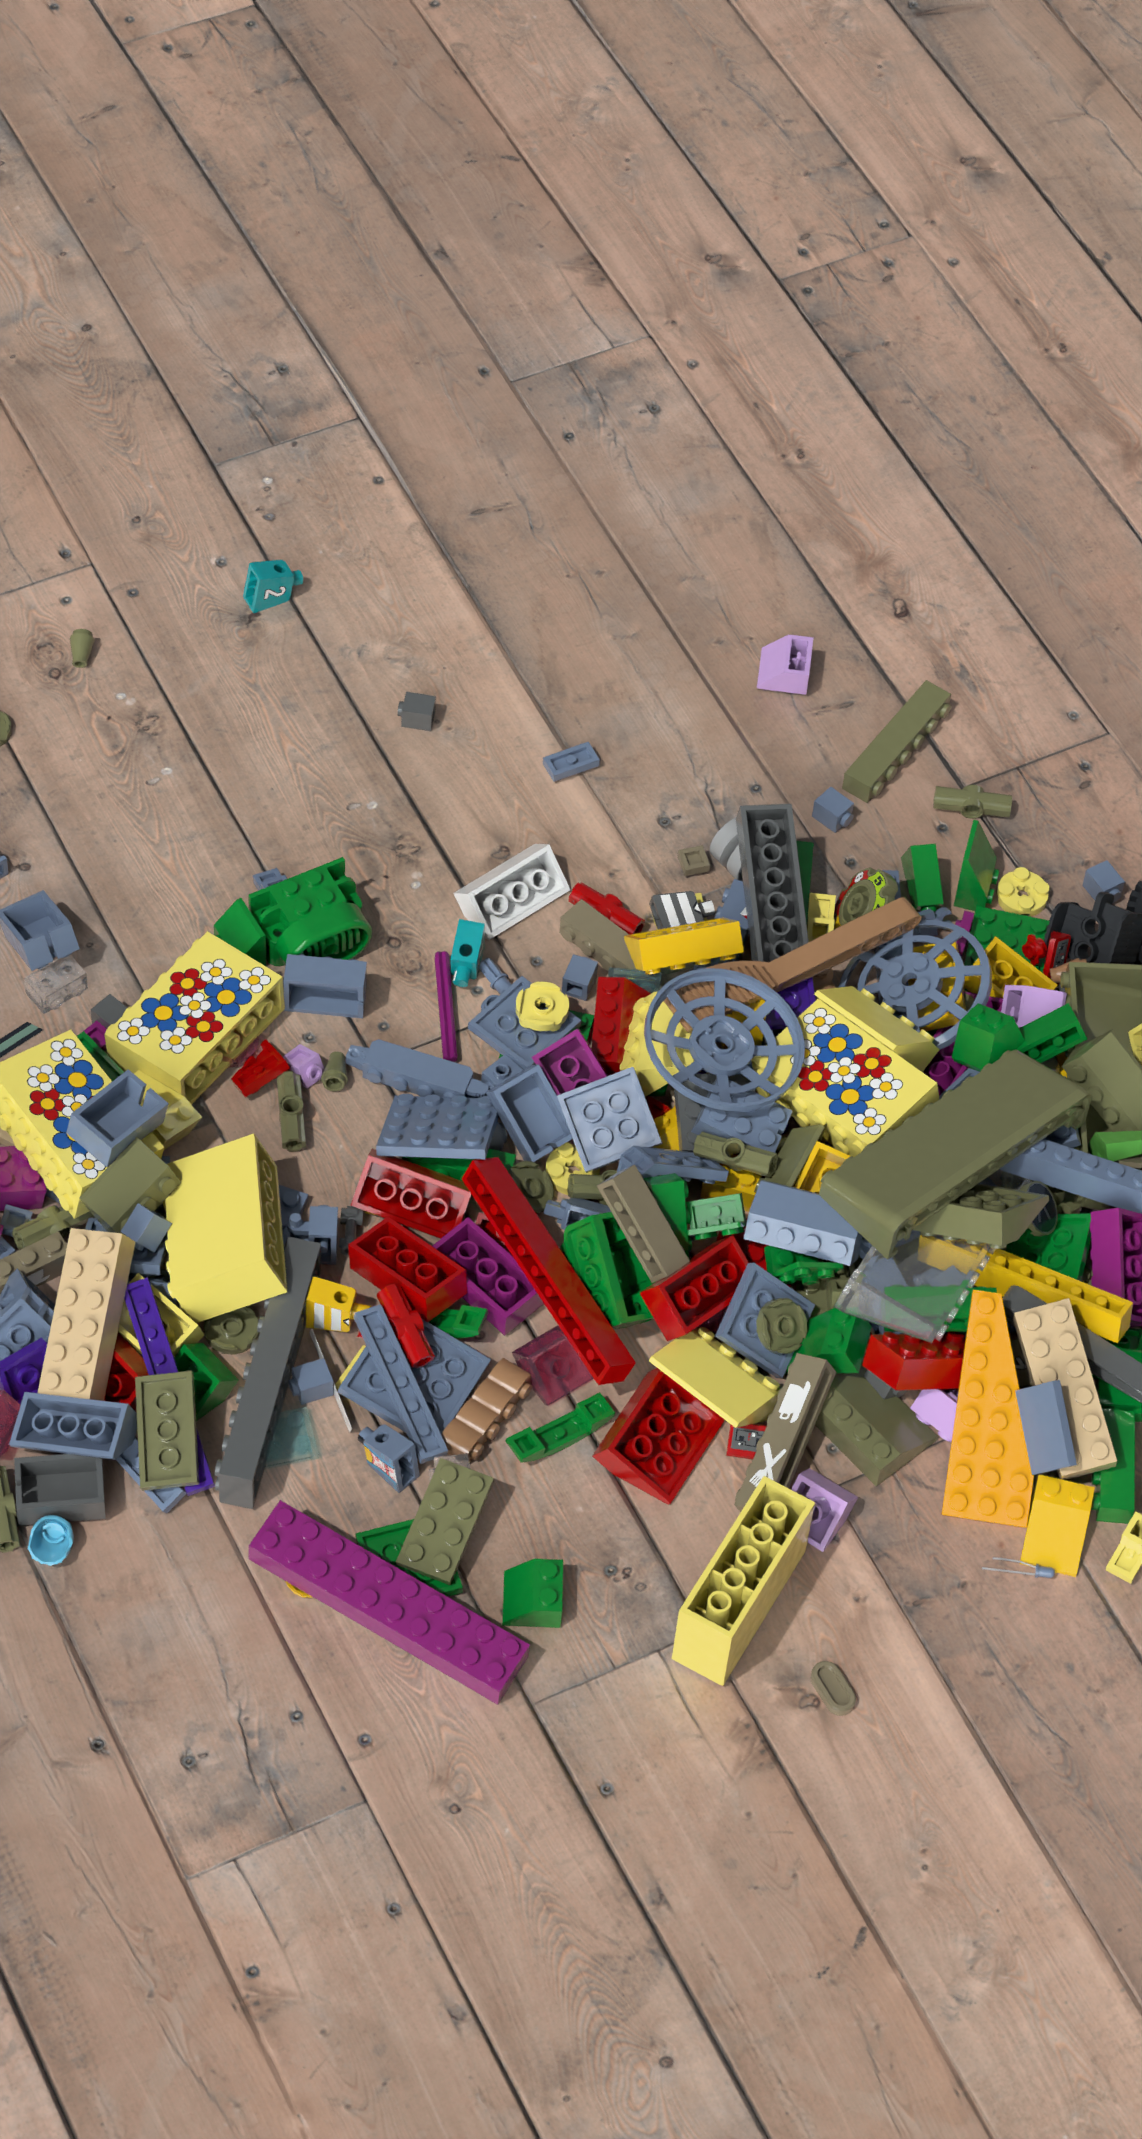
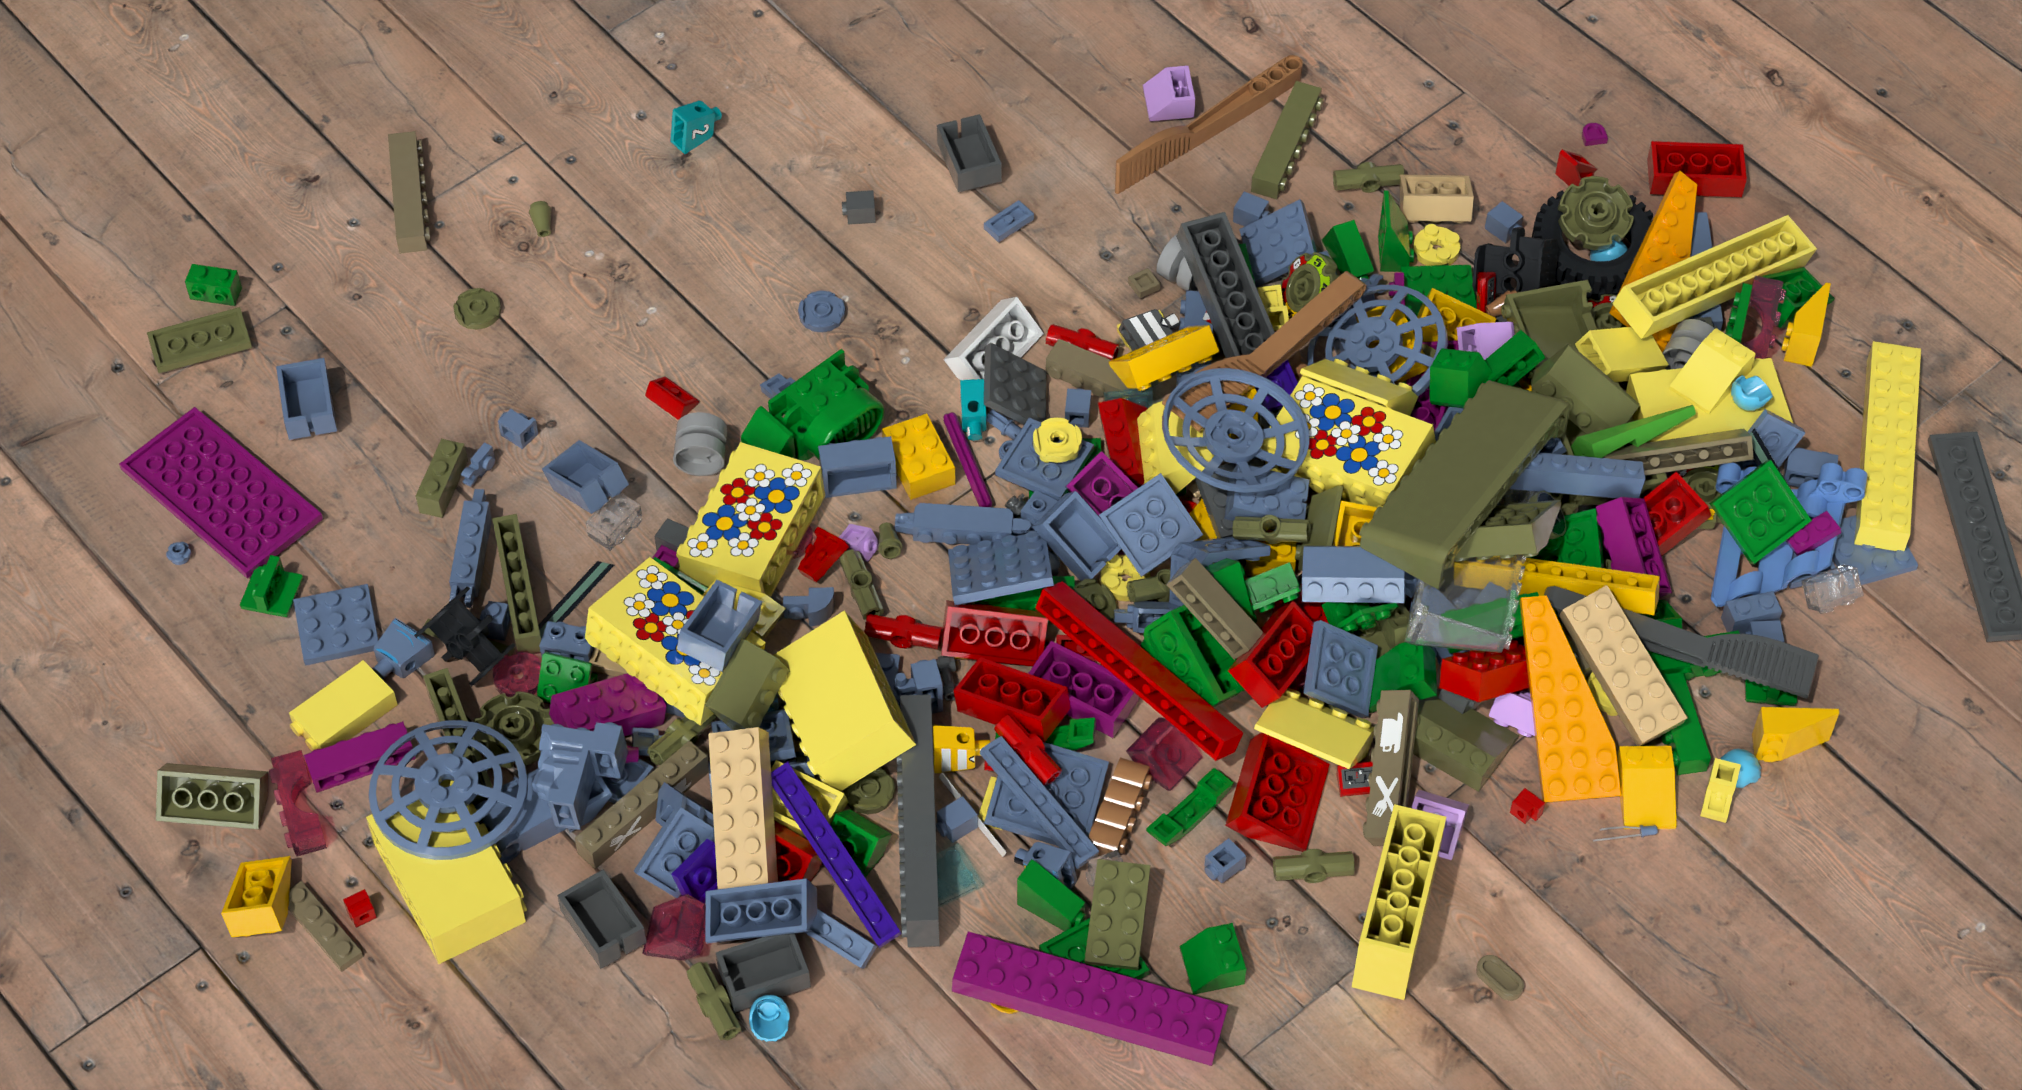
camera: 10 degrees left, 0 degrees up
(146, 1228) = (772, 717): sand blue brick -> none
(157, 867) = (670, 397): none -> red slope
(167, 1430) = (846, 894): olive plate -> none
(168, 923) = (700, 444): none -> light grey wheel
(235, 1123) = (816, 606): none -> sand blue brick
(319, 1170) = (903, 631): none -> red piece
(343, 812) = (821, 311): none -> sand blue tile
(380, 1486) = (1049, 898): none -> green slope
(395, 990) = (920, 457): none -> yellow brick
(479, 1064) = (1015, 504): none -> dark grey plate
(517, 938) = (1014, 385): none -> dark grey plate
(551, 684) = (972, 157): none -> dark grey piece
(583, 1489) = (1224, 855): none -> sand blue brick
(672, 1521) = (1313, 866): none -> olive piece
(770, 716) = (1178, 139): none -> medium nougat piece
(781, 1326) = (1356, 670): olive tile -> none
(848, 847) = (1277, 241): none -> sand blue plate
(920, 1514) = (1527, 806): none -> red piece
(1034, 949) = (1465, 291): red plate -> none
(1037, 840) = (1436, 198): none -> tan slope
(1046, 1427) = (1618, 703): sand blue tile -> none

